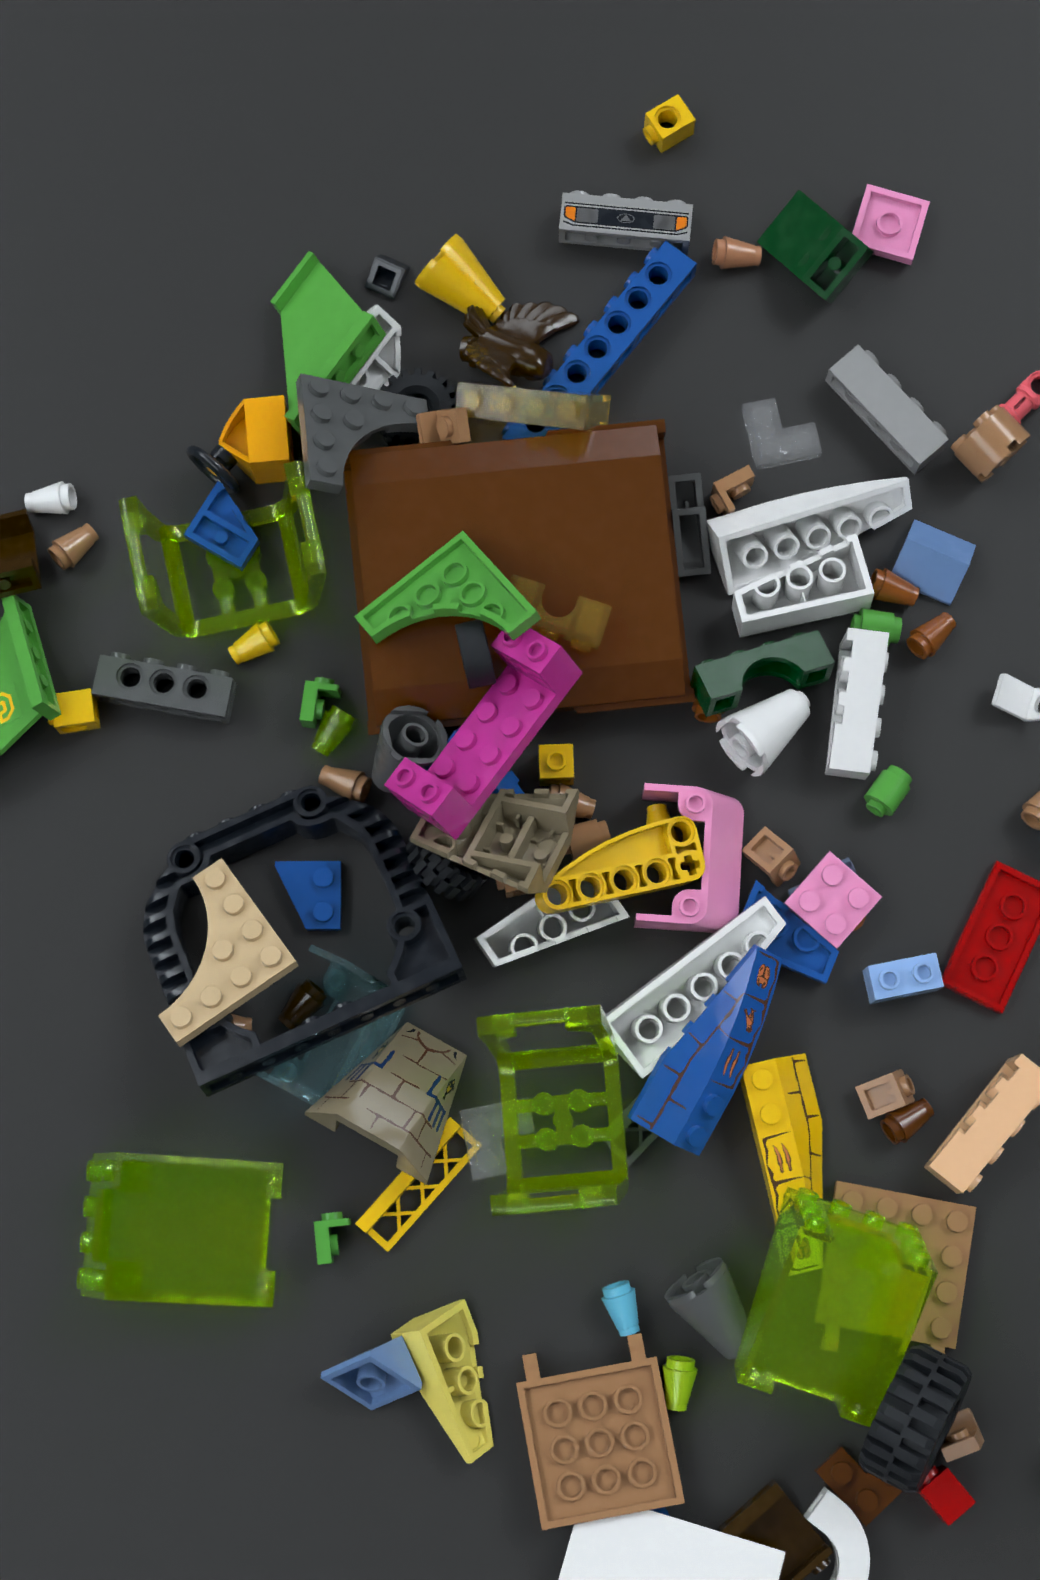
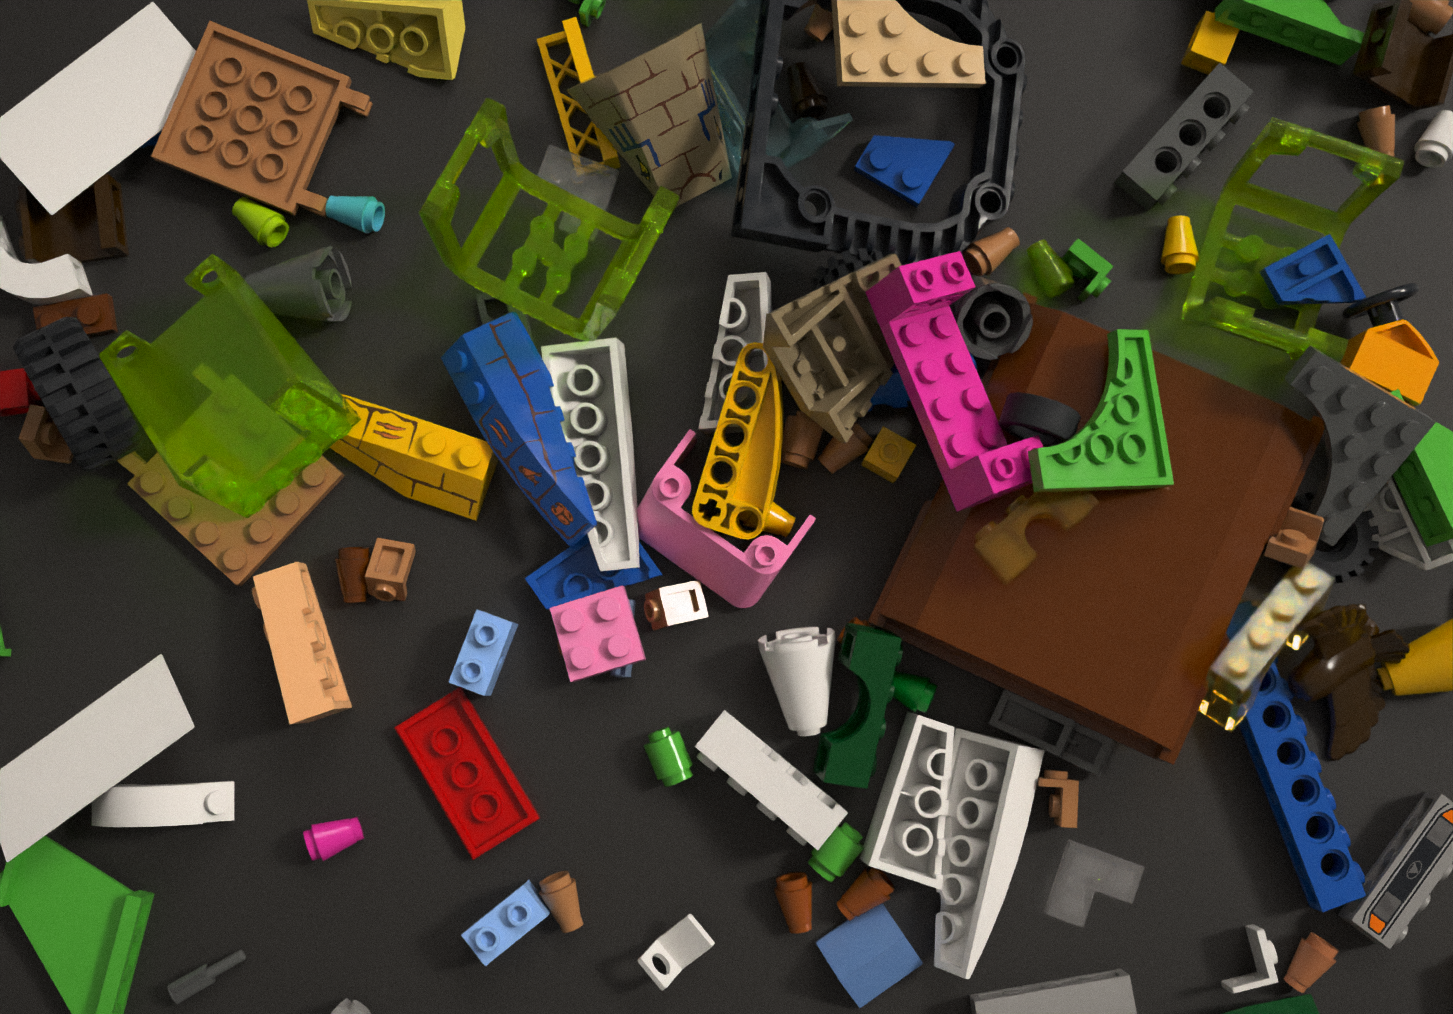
camera: 120 degrees right, 5 degrees up
(722, 639) = (913, 691): none -> green cone
(767, 279) = (1264, 958): none -> white bracket

